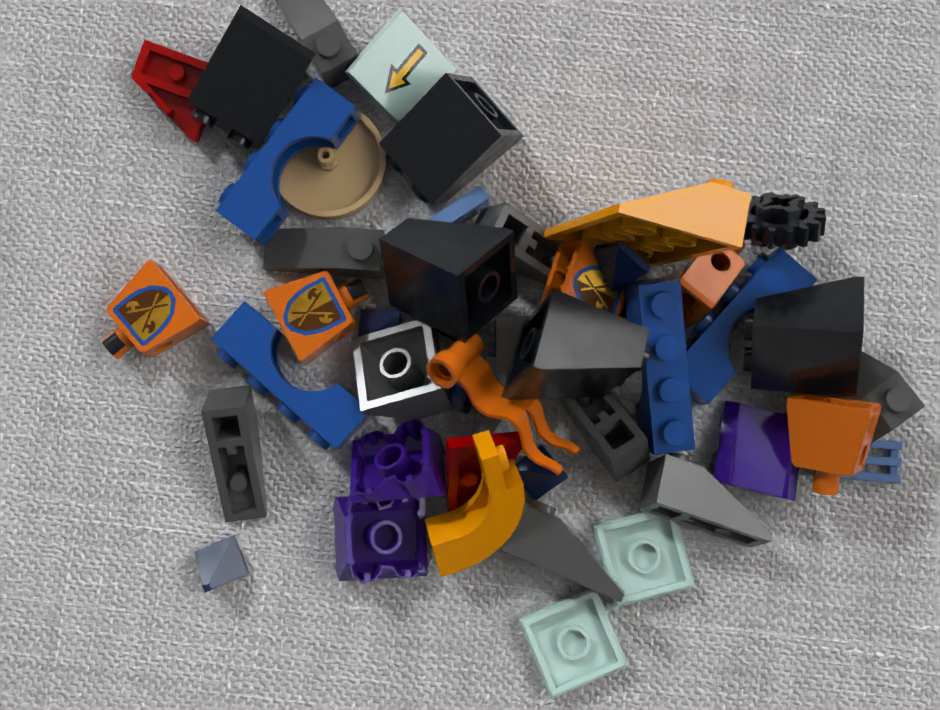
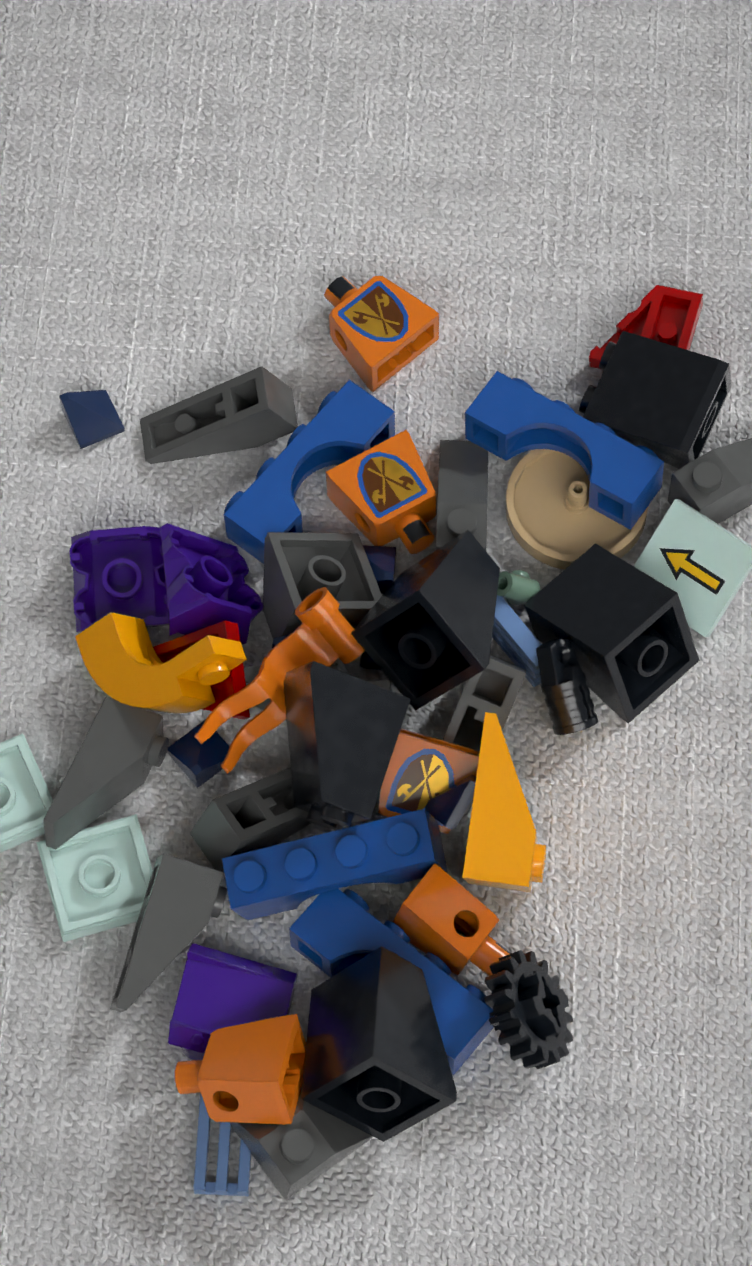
camera: 90 degrees right, 20 degrees down
(412, 207) = (517, 586): none -> sand green arm
(507, 176) = (565, 688): none -> black hinge

